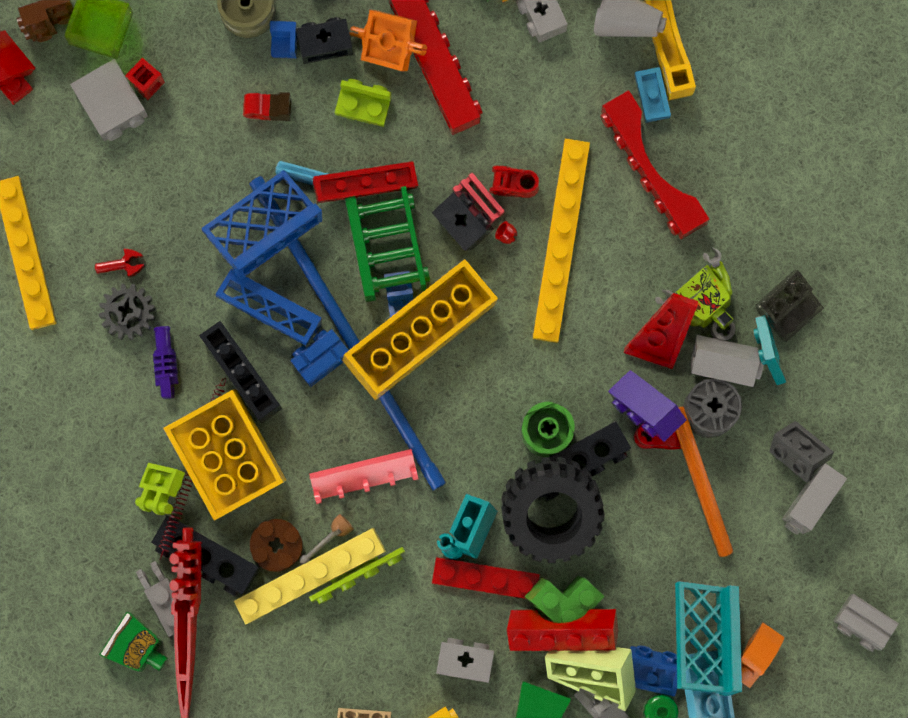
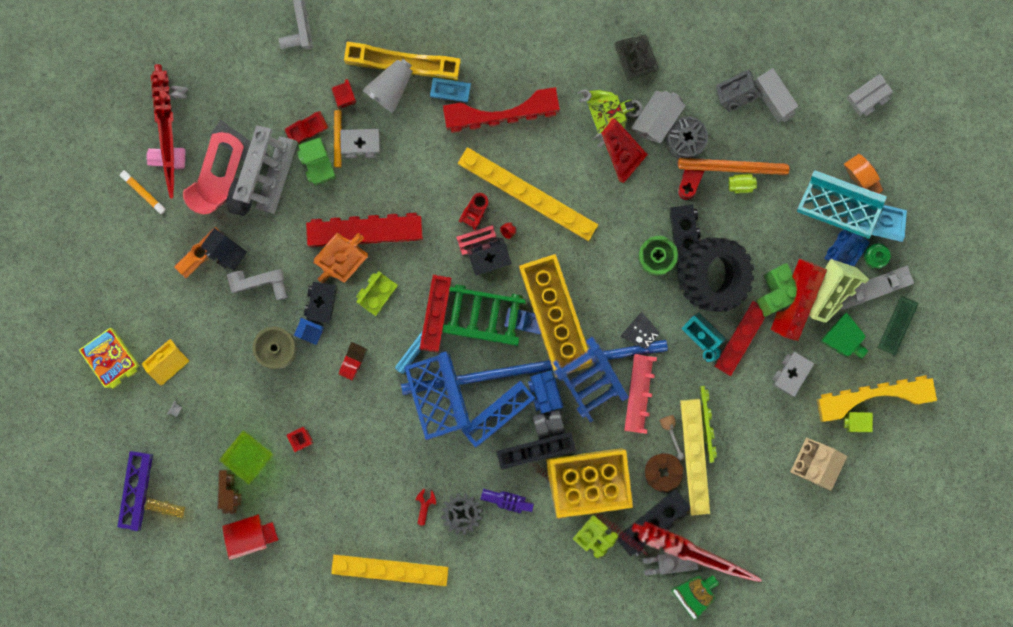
camera: 65 degrees left, 5 degrees up
(109, 101) = (305, 470): light grey brick -> none
(280, 376) = (548, 424): none -> dark grey wheel
(378, 406) = (608, 377): none -> blue fence
(443, 447) = (641, 331): none -> black sticker
(646, 406) = (669, 182): dark purple brick -> none
(684, 502) = (742, 183): none -> lime brick
(769, 353) = (663, 83): teal wing -> none

